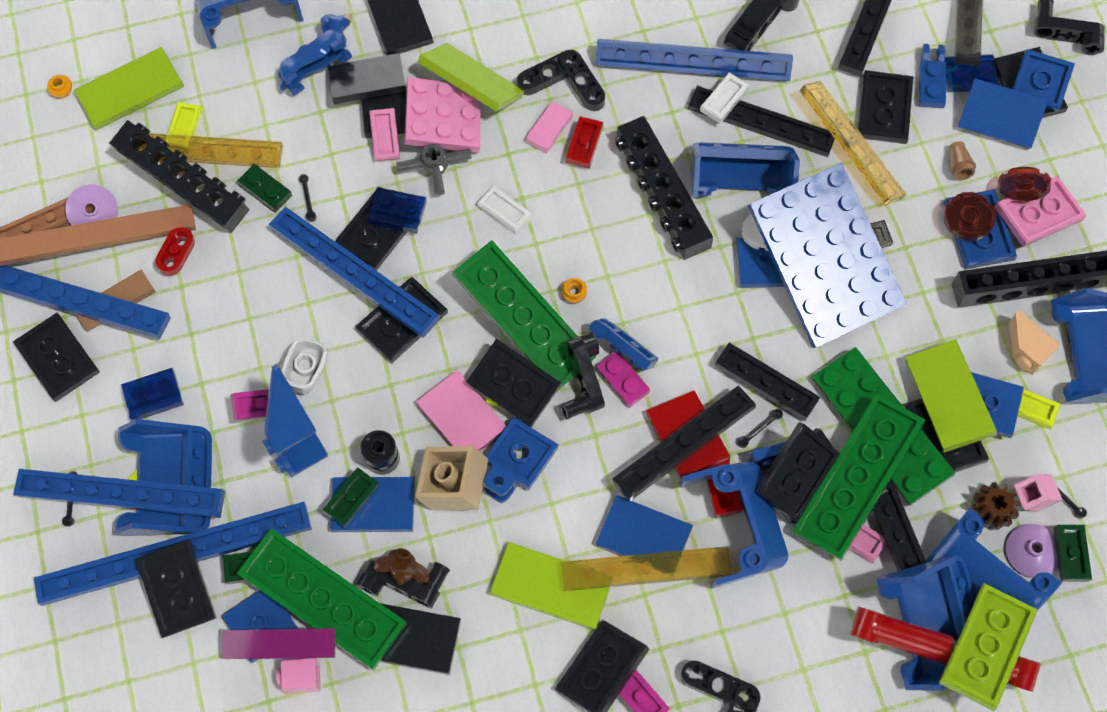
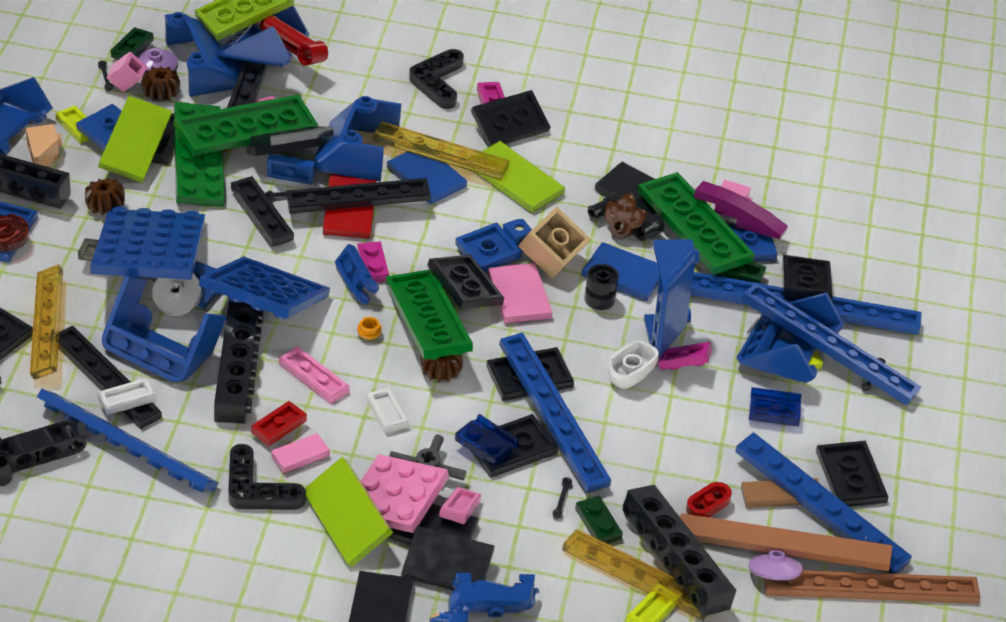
camera: 160 degrees left, 25 degrees down
(351, 497) = (637, 269): dark green plate -> none
(579, 354) = (402, 266): black beam -> none
(591, 215) = (314, 375): none -> bright pink tile
(688, 261) = (264, 287): none -> blue plate
(922, 302) = (104, 195): none -> reddish brown gear

